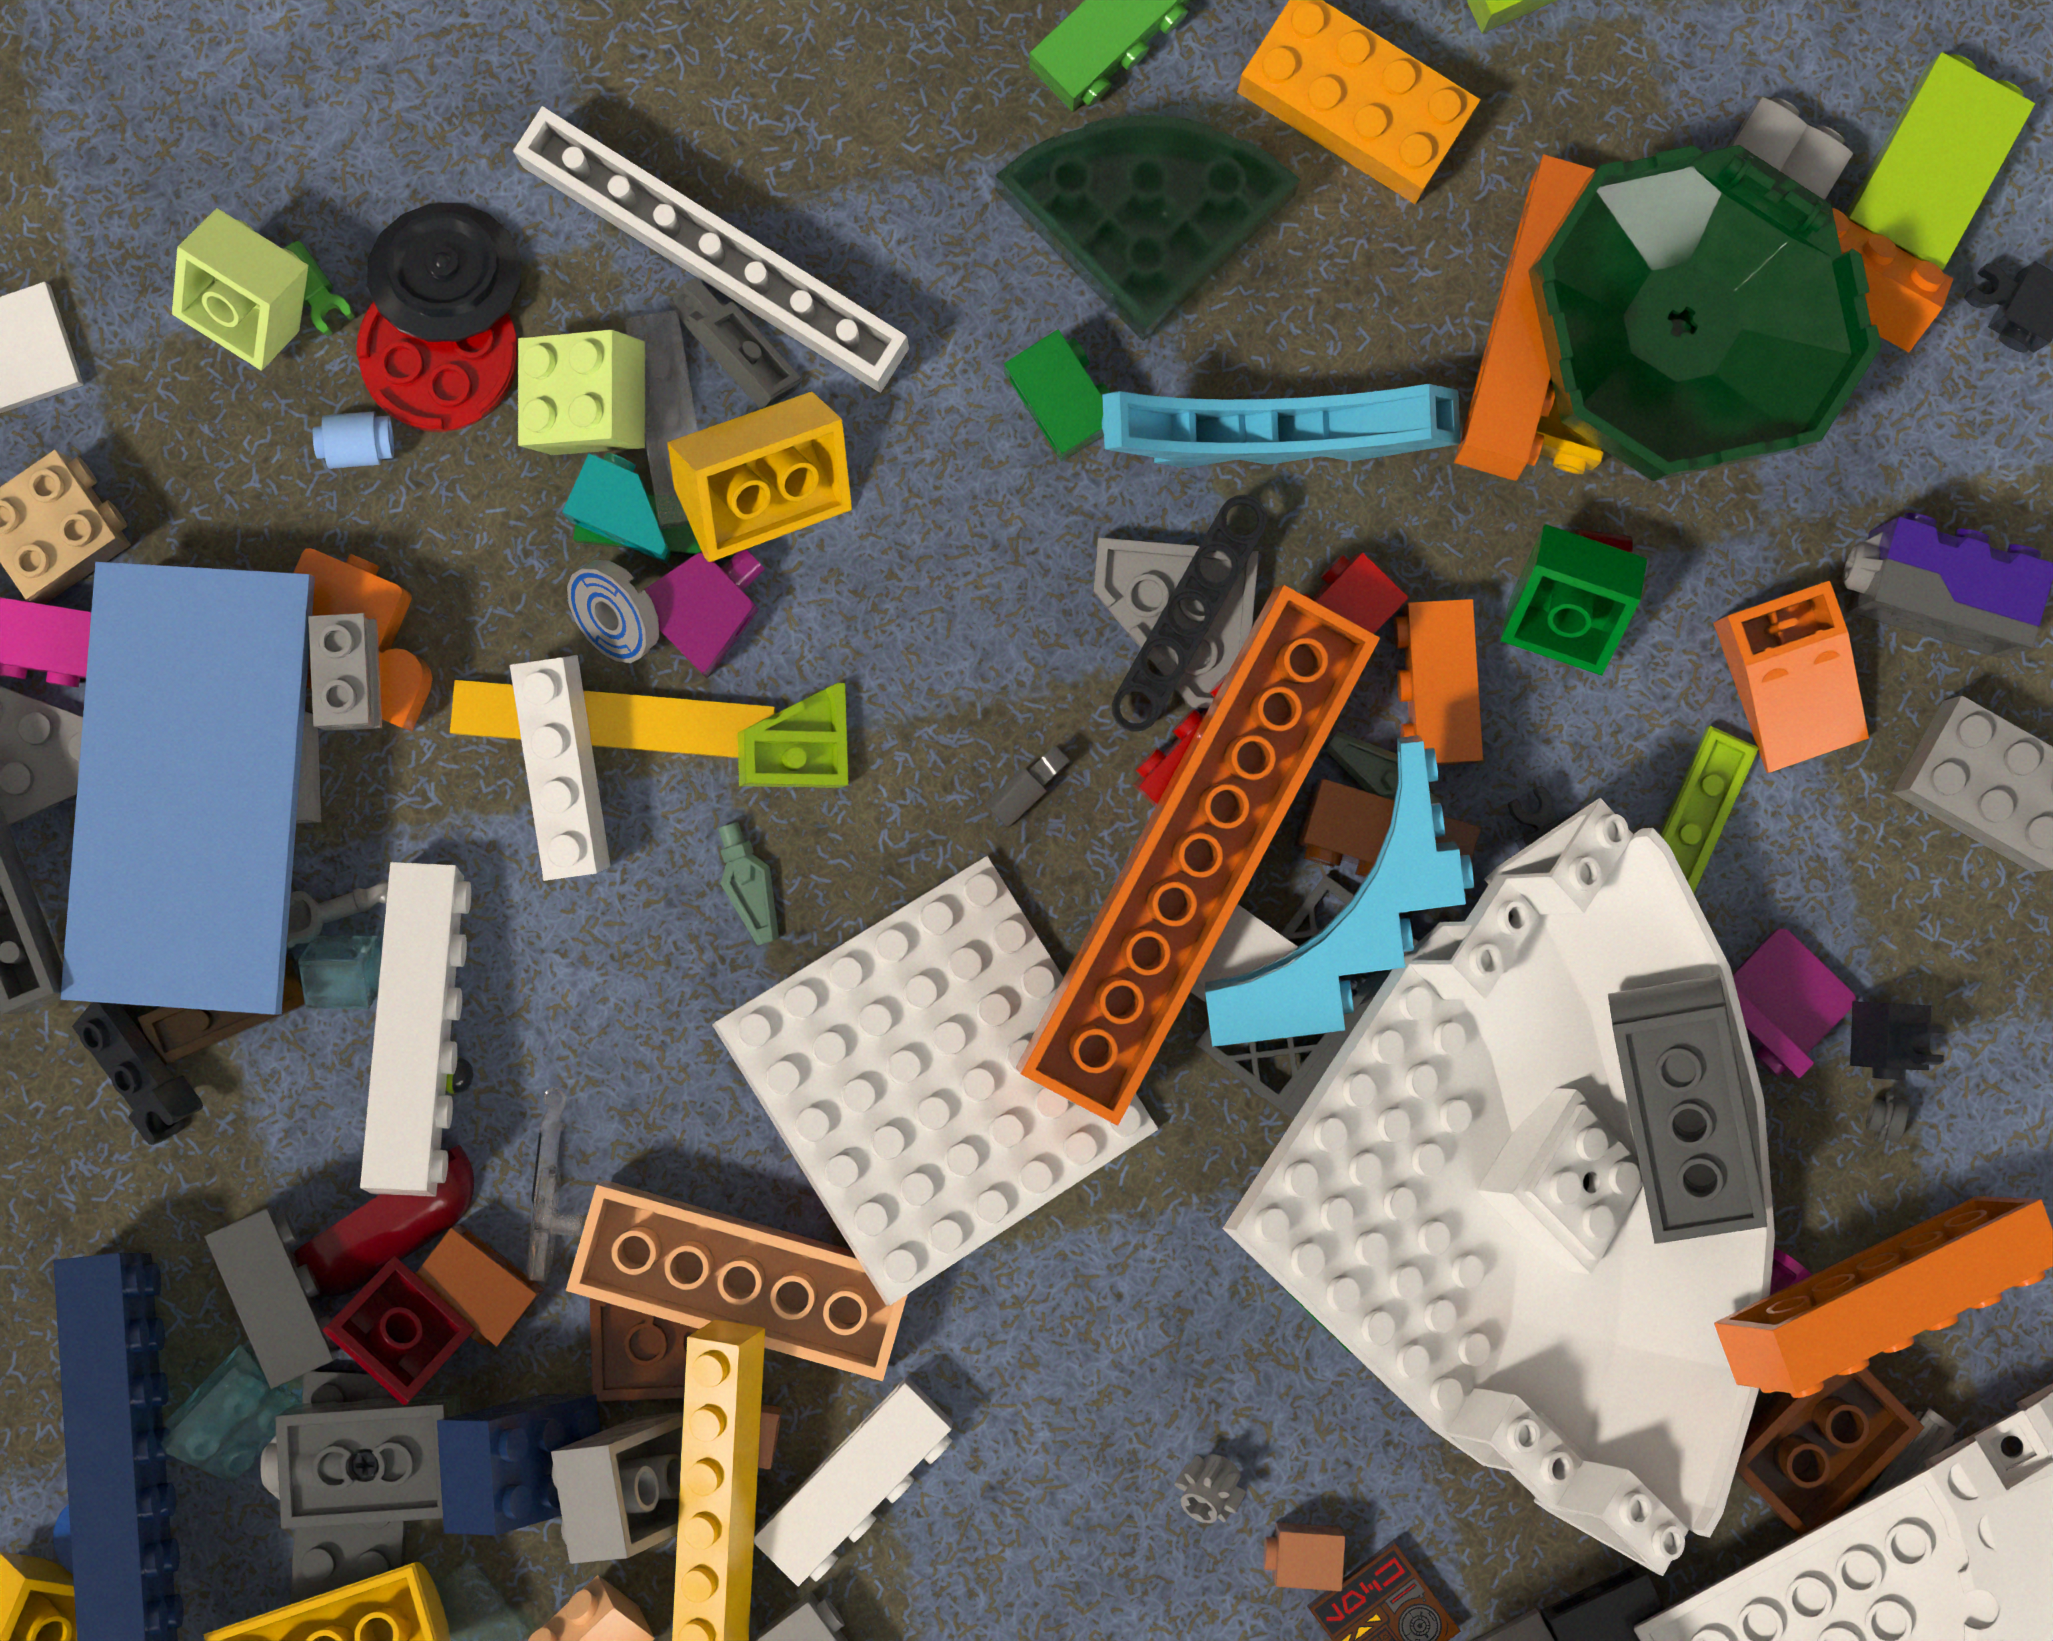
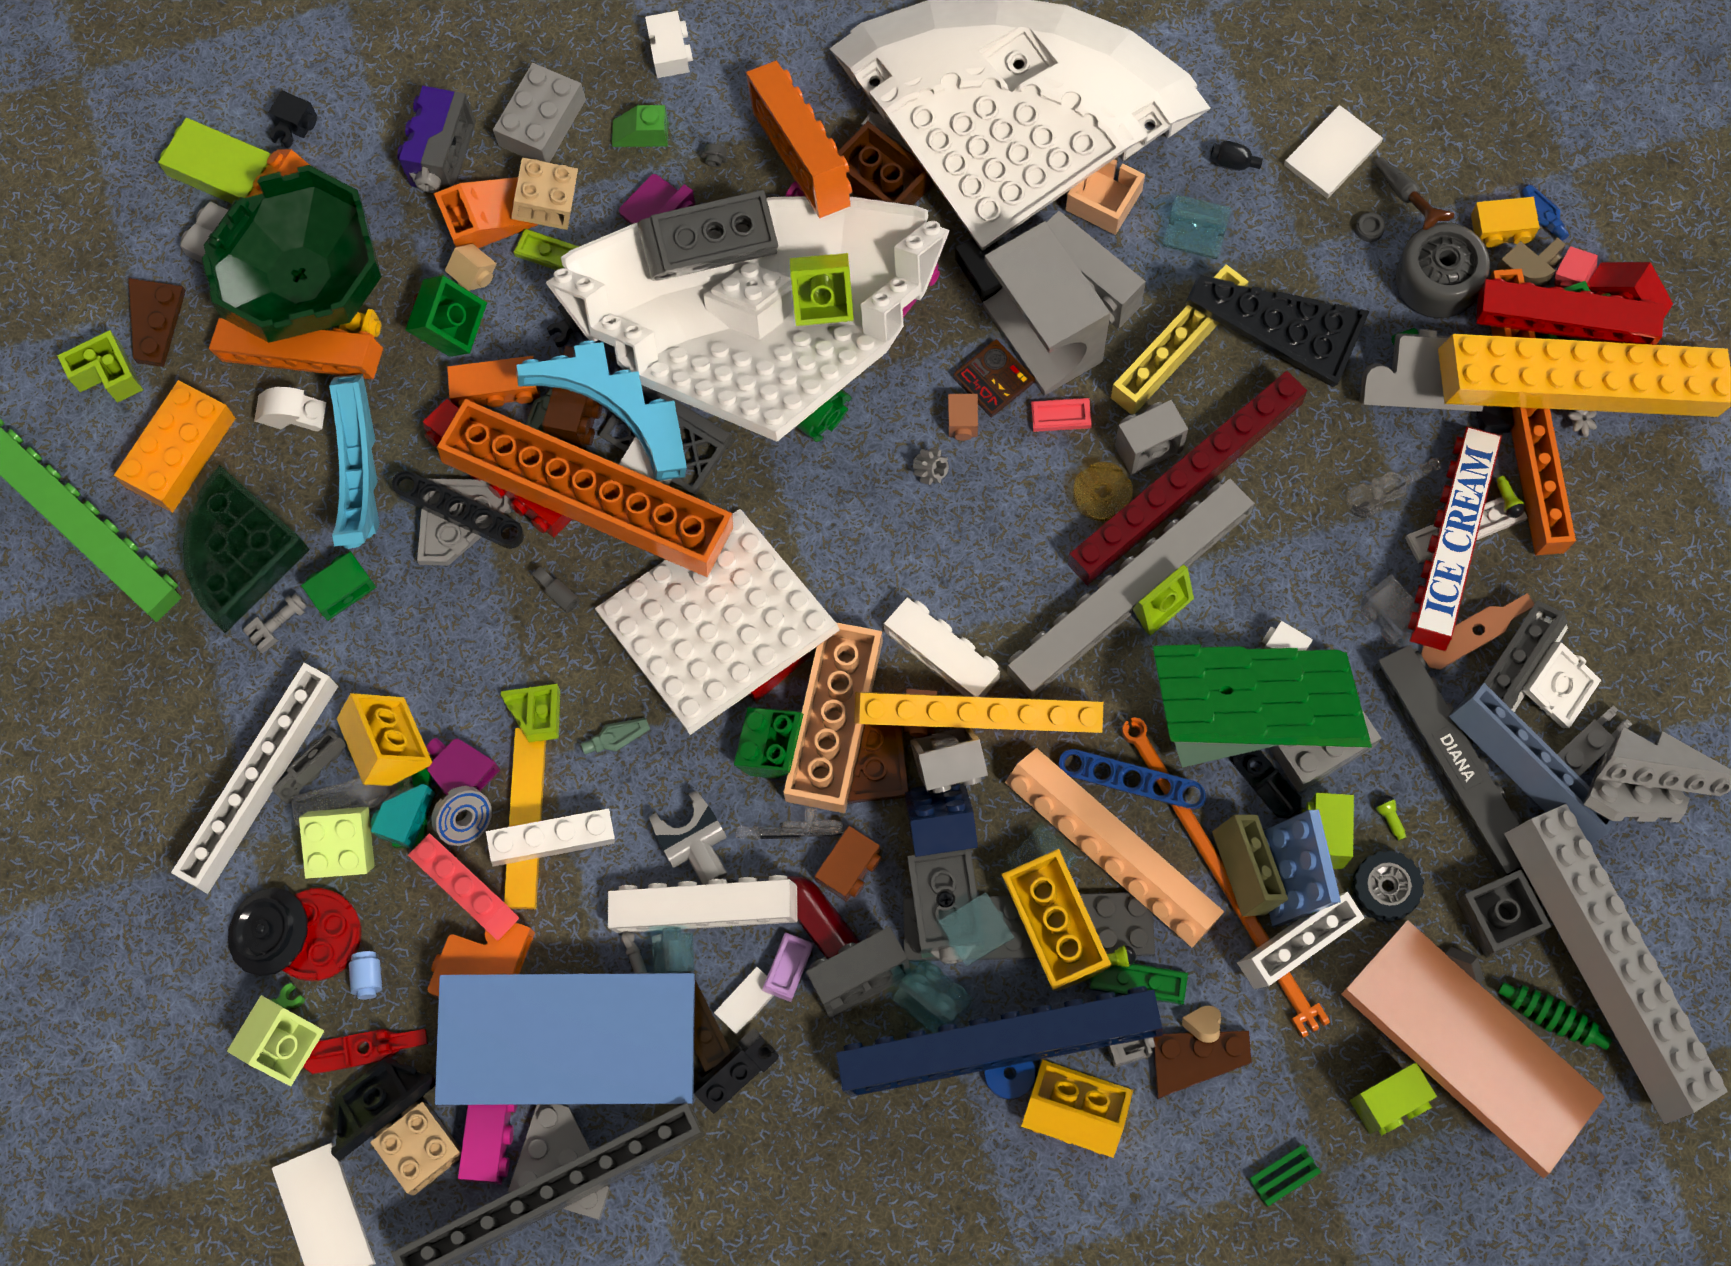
camera: 85 degrees left, 15 degrees down
(130, 458) = (375, 1102): none -> black wing
(235, 402) = (345, 1053): none -> red piece
(259, 1093) = (744, 1002): none -> white tile
(299, 1517) = (976, 929): none -> clear light blue piece
(306, 1168) = (788, 967): none -> lavender tile
(345, 672) = (497, 954): light grey hinge -> none
(398, 1330) = (871, 895): dark red slope -> none
(479, 614) = (463, 886): none -> coral brick
(540, 1015) = (693, 841): none -> light grey connector
(697, 1164) = (768, 742): none -> green slope
(1035, 316) = (265, 630): none -> light grey hinge
(1414, 305) = (287, 406): none -> white brick
(1558, 1321) = (821, 289): none -> lime brick
(1624, 49) = (153, 319): none -> reddish brown wing
(1678, 646) = (470, 267): none -> tan brick
(1821, 791) = (544, 193): none -> tan brick
(1892, 1038) = (671, 152): black brick -> none
(1957, 975) = (641, 127): none -> bright green slope

